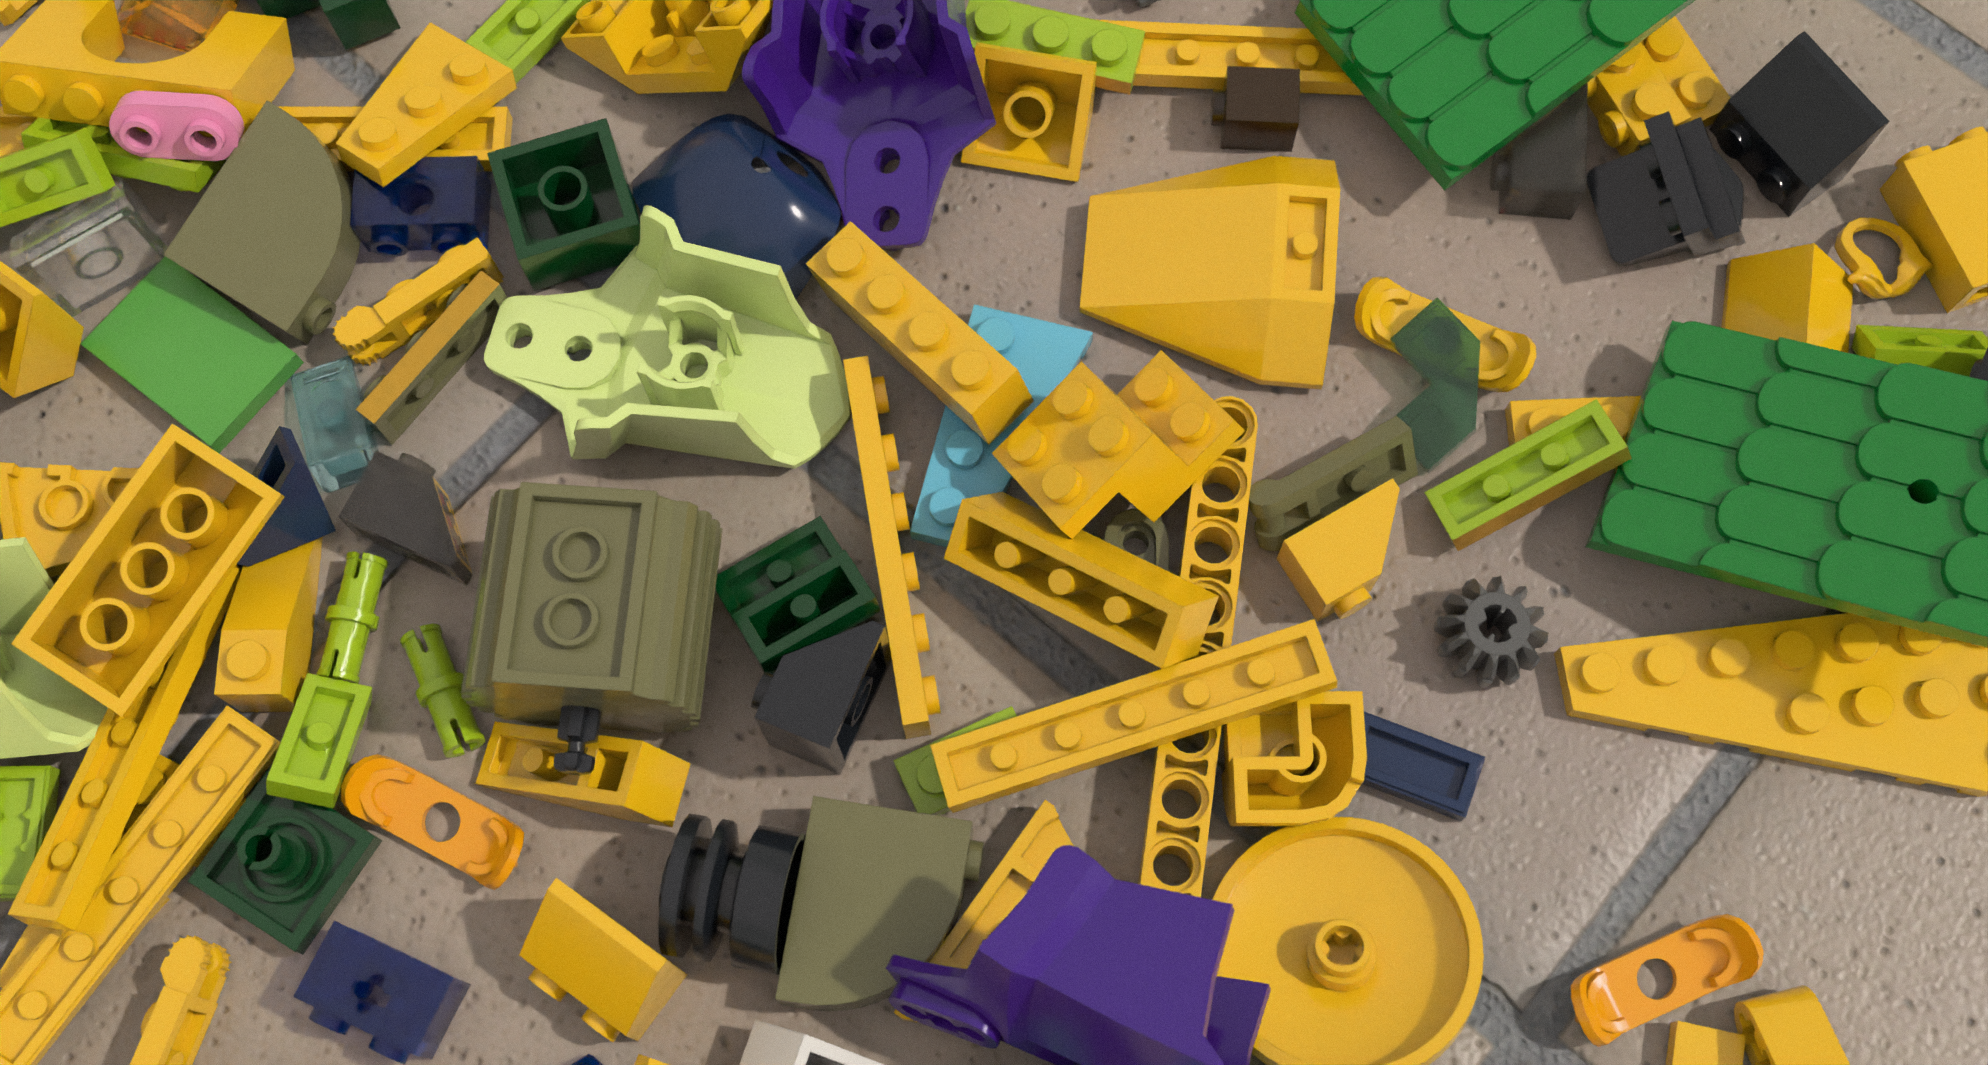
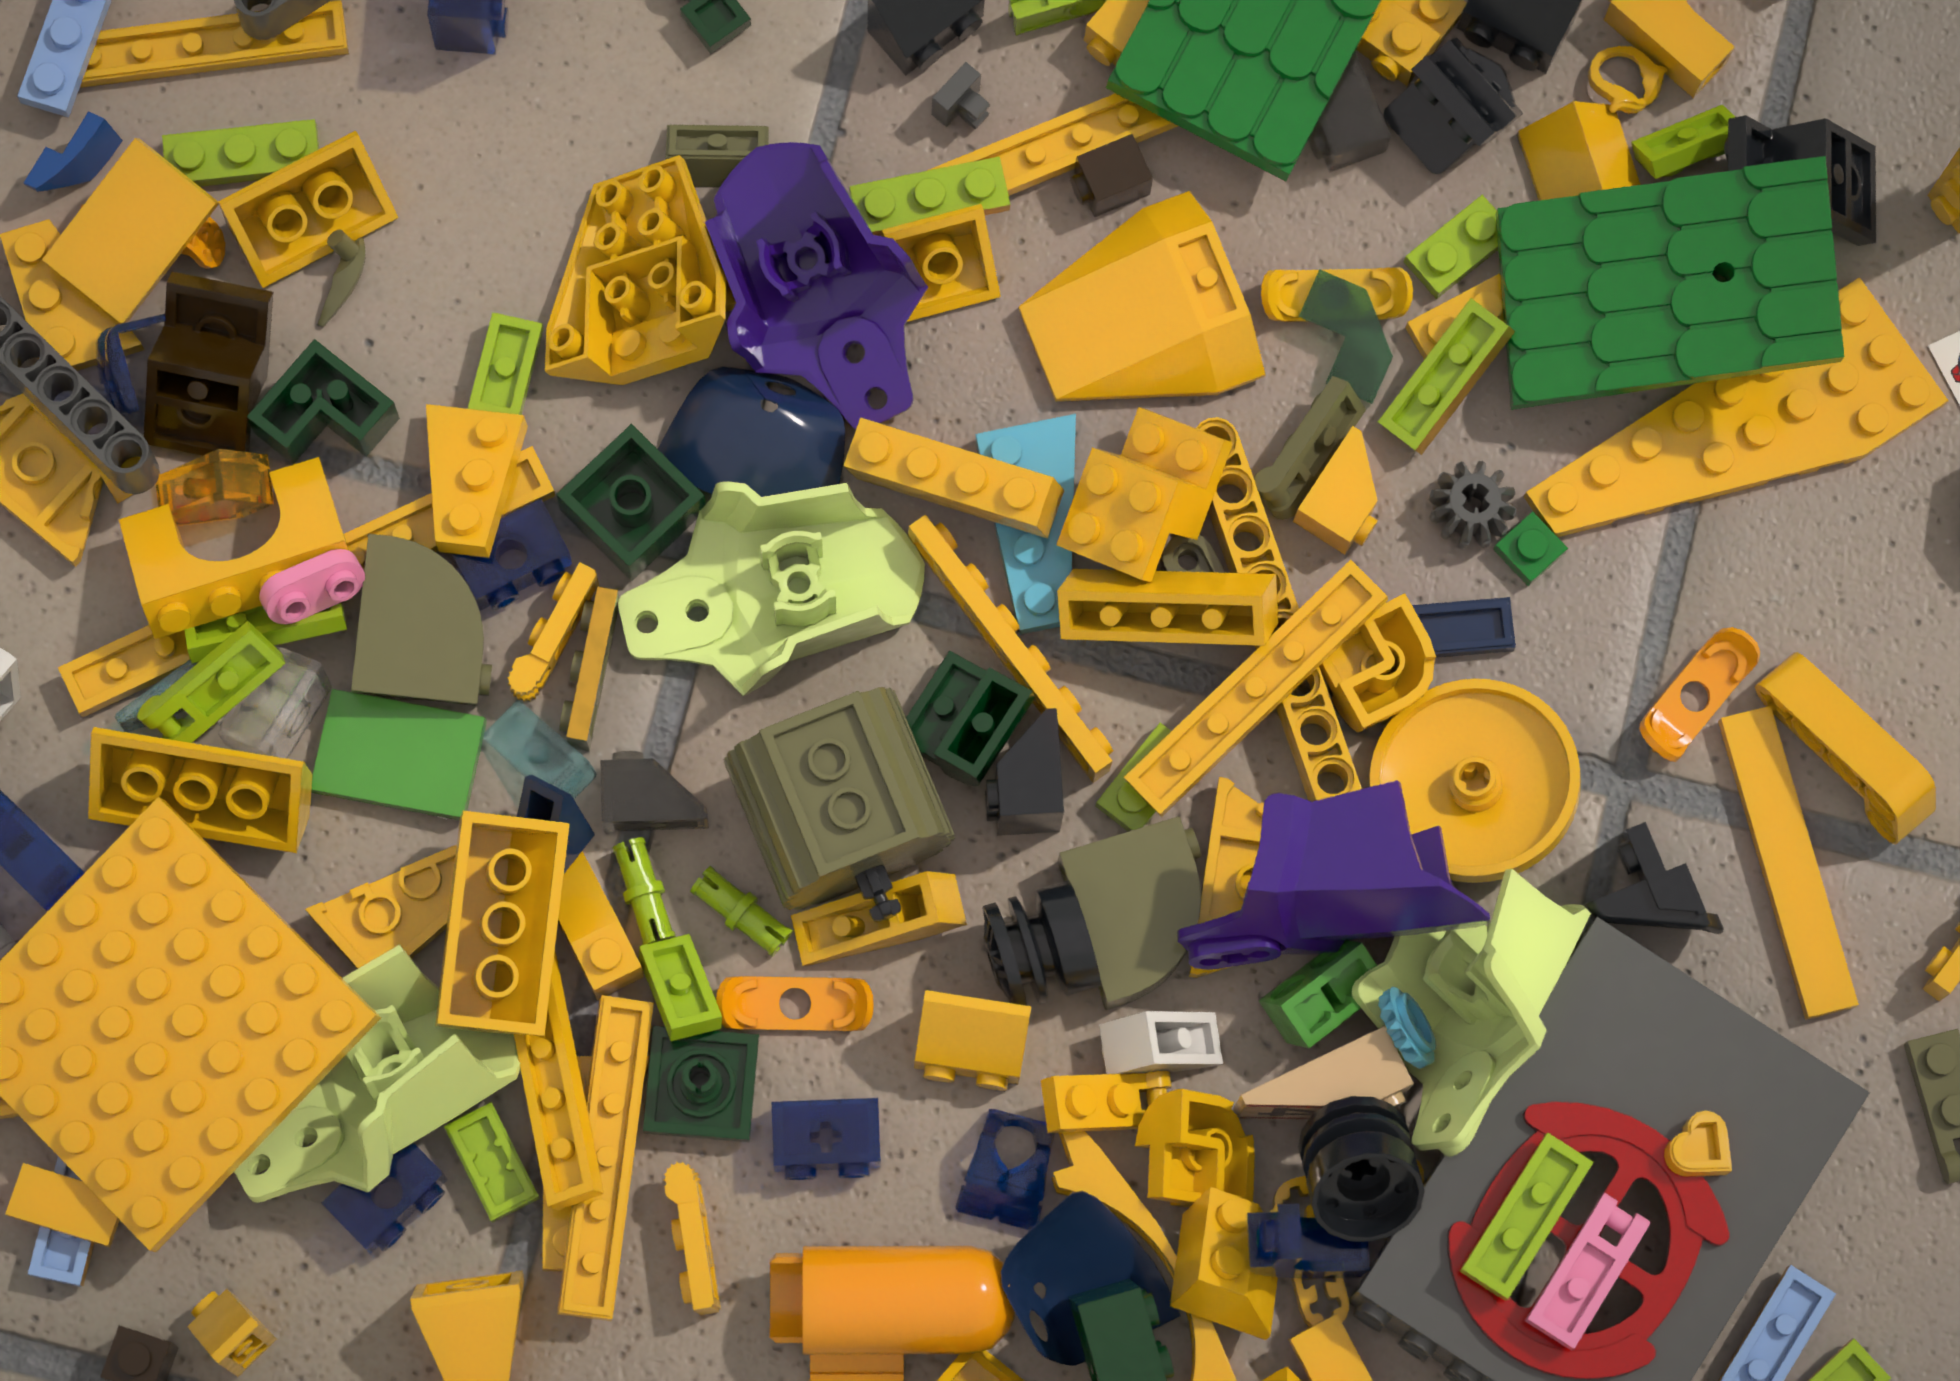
camera: 35 degrees left, 5 degrees up
(1535, 714) = (1530, 548): none -> green plate
(1602, 349) = (1455, 248): none -> lime plate

